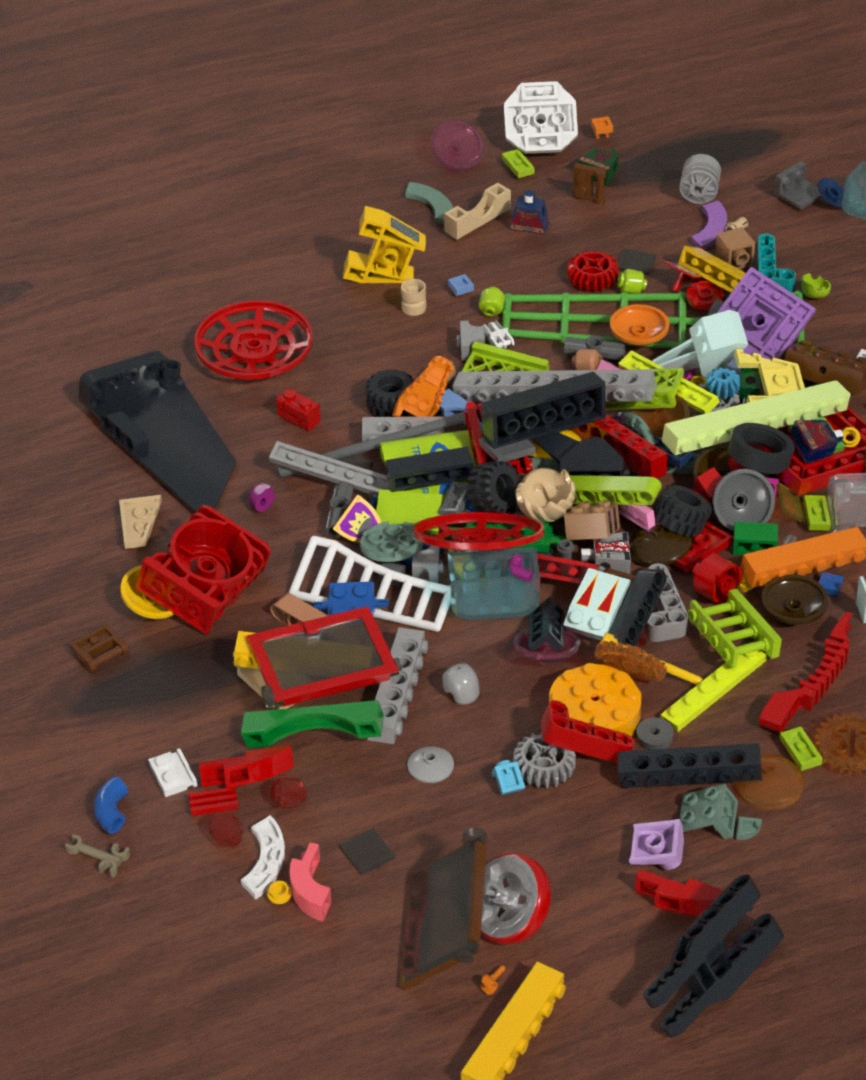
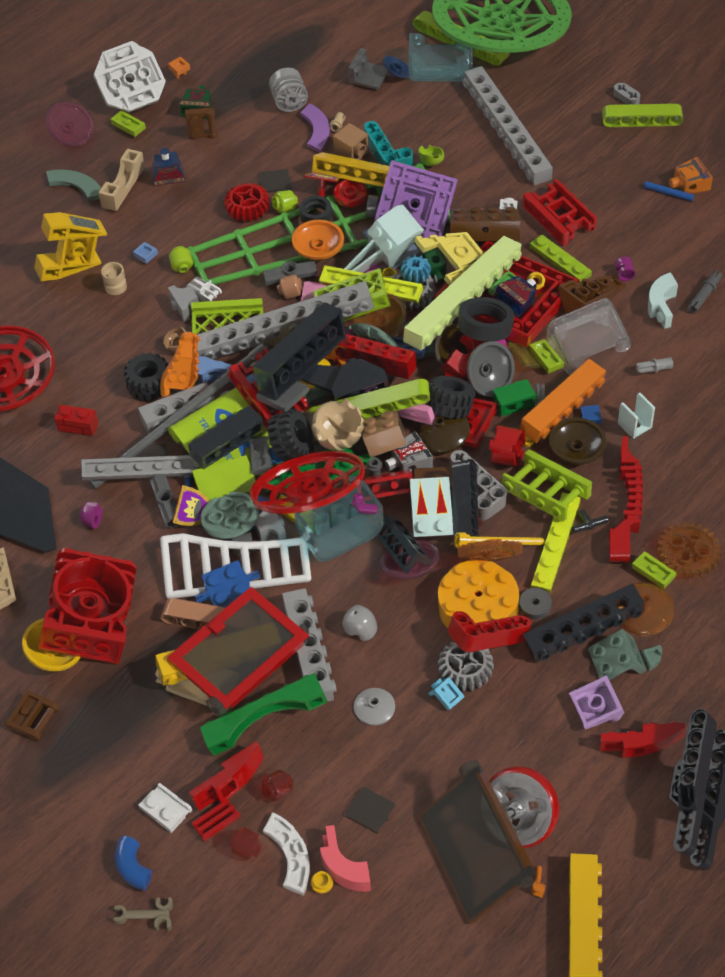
camera: 25 degrees left, 10 degrees up
(660, 291) = (315, 202): none -> black tyre
(760, 681) = (588, 522): none -> black piece

